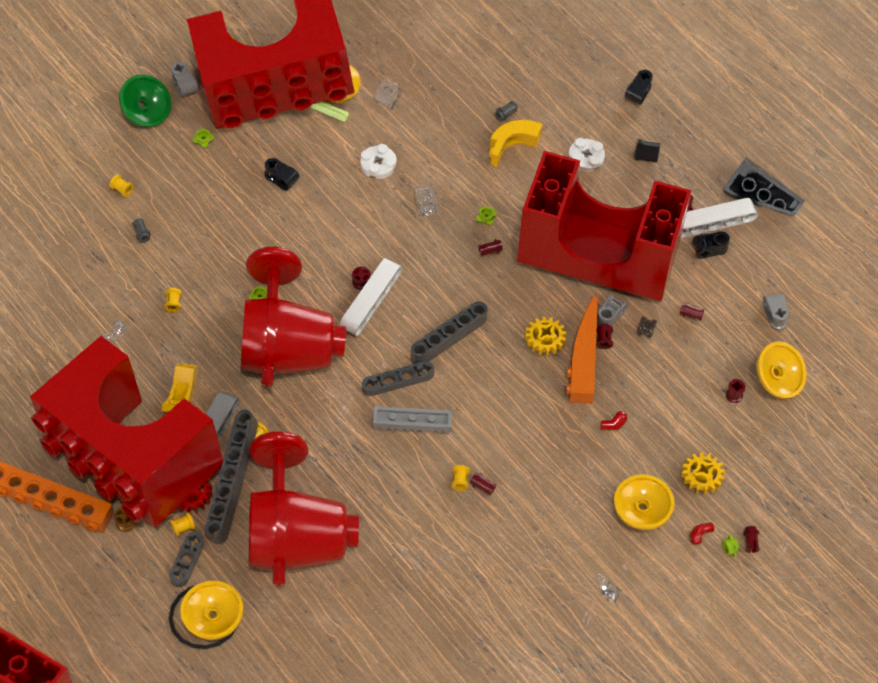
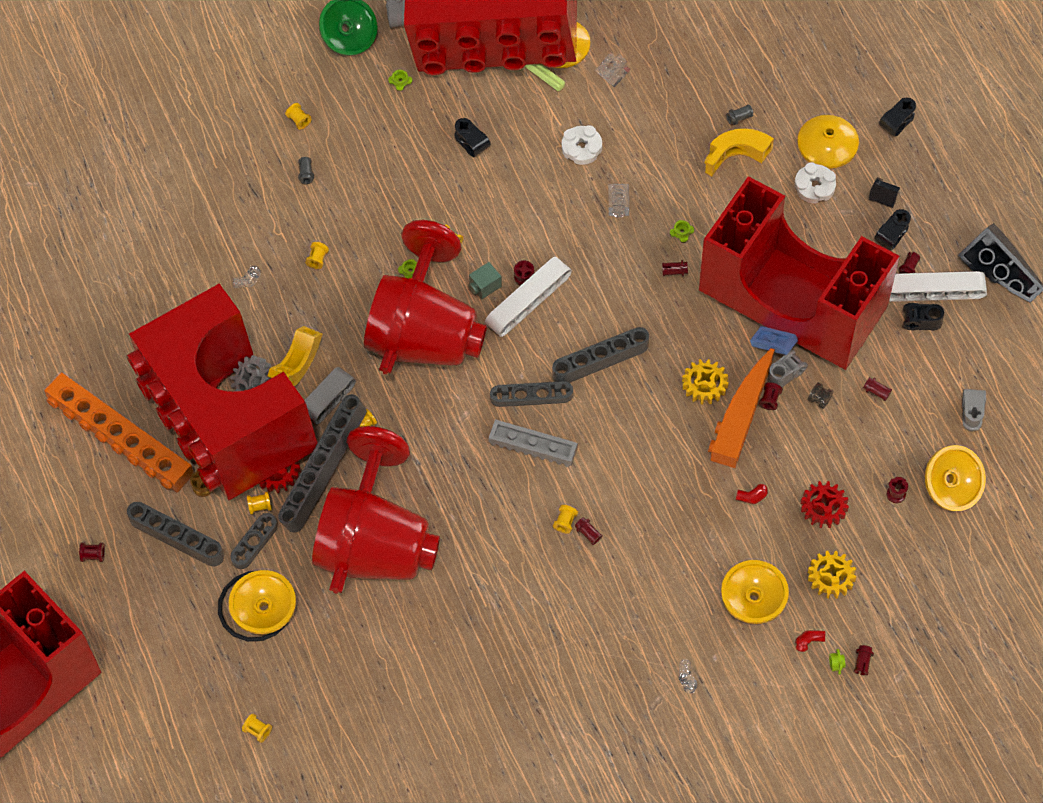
camera: 20 degrees right, 5 degrees up
(39, 602) = (91, 552): none -> dark red bush
(120, 575) = (169, 526): none -> dark grey beam
(141, 415) = (248, 375): none -> light grey gear
(329, 291) = (484, 280): none -> sand green brick
(586, 118) = (827, 149): none -> yellow dish
(589, 288) = (771, 338): none -> medium blue plate
(666, 172) = (894, 229): none -> black piece
(678, 416) = (821, 508): none -> red gear

